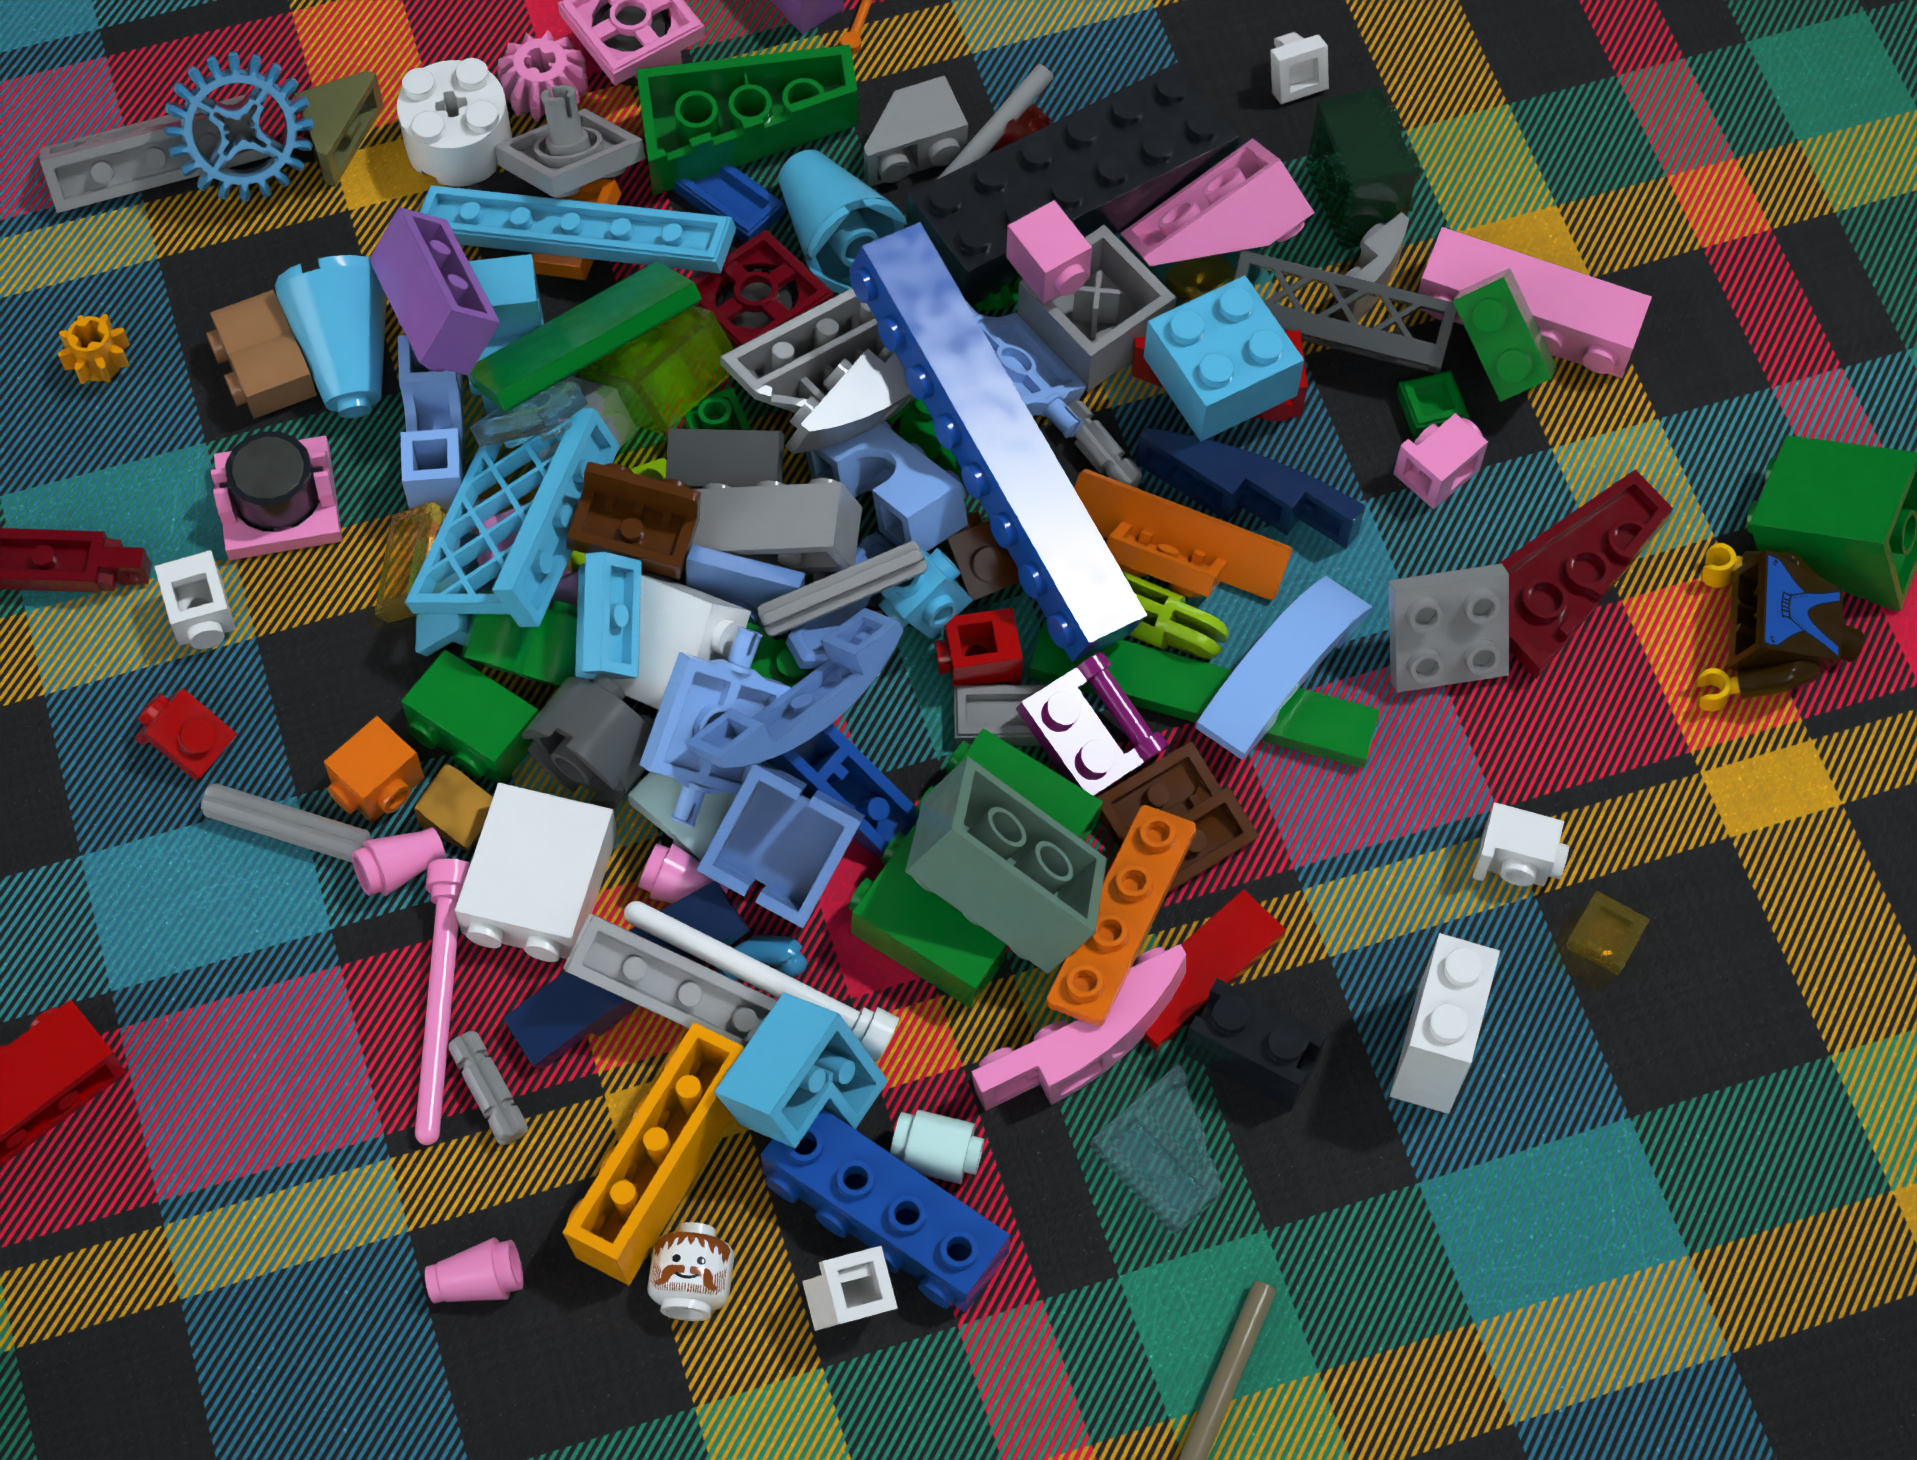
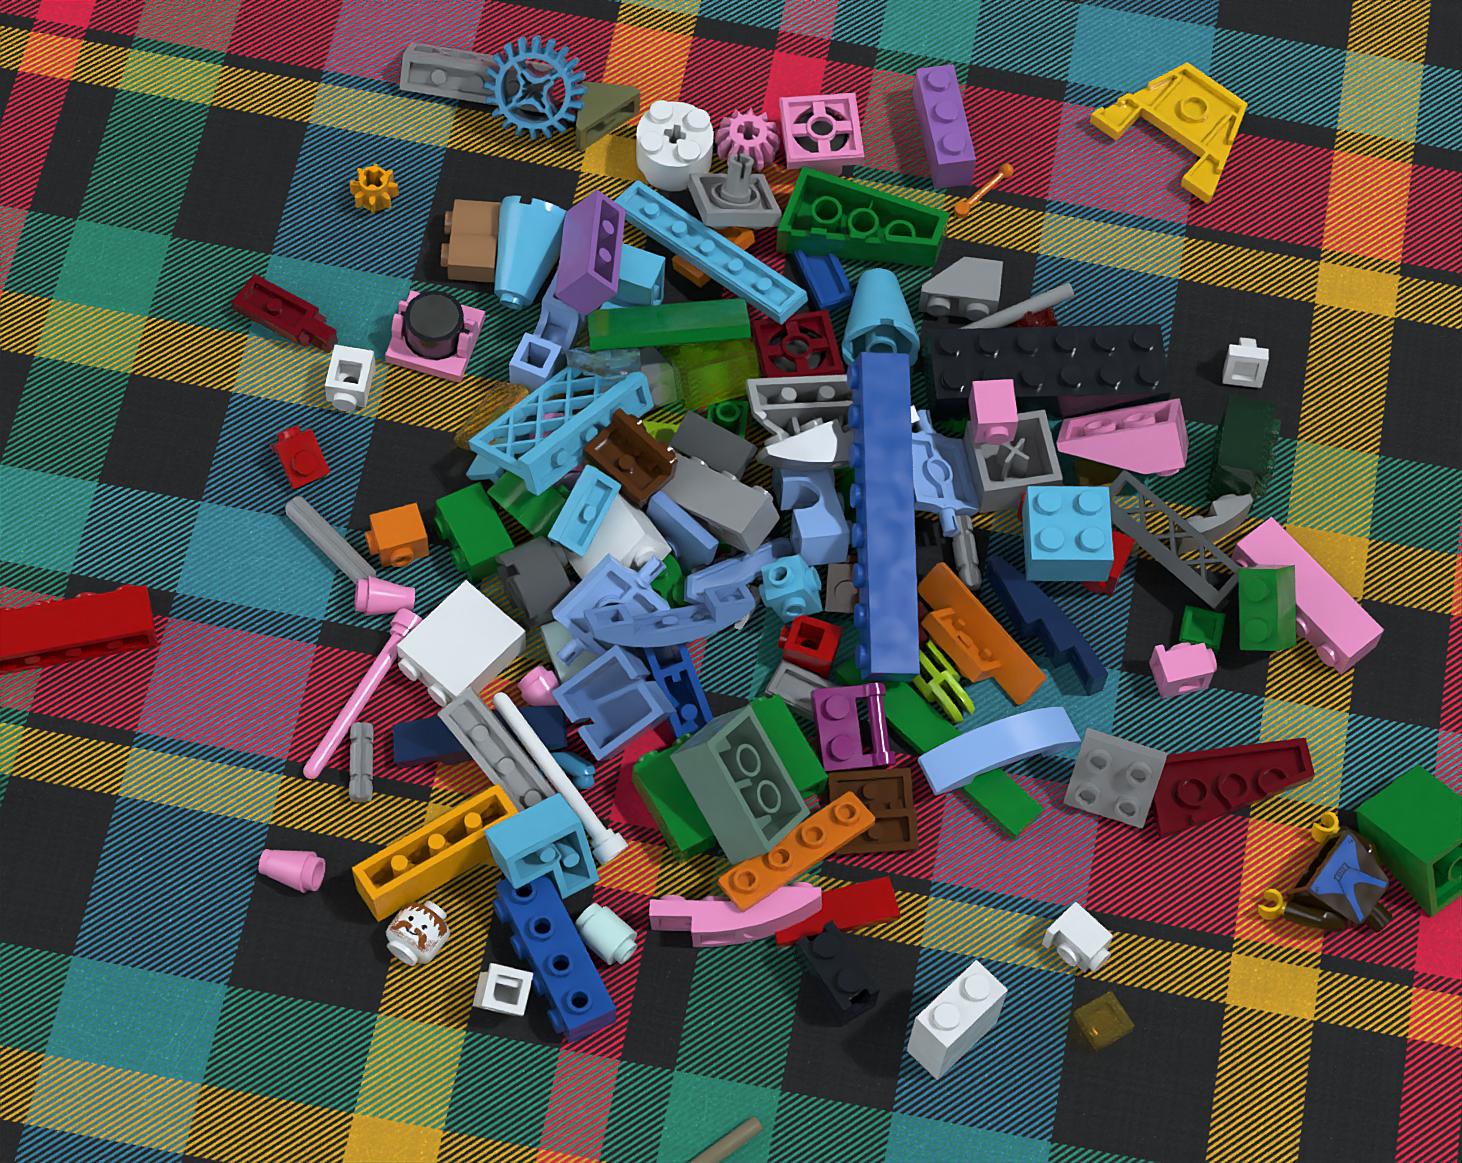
camera: 25 degrees right, 0 degrees up
(454, 808) = (433, 581): pearl gold slope -> none
(842, 589) = (735, 563): light grey axle -> none
(1162, 1152) = (742, 1009): clear light blue wing -> none

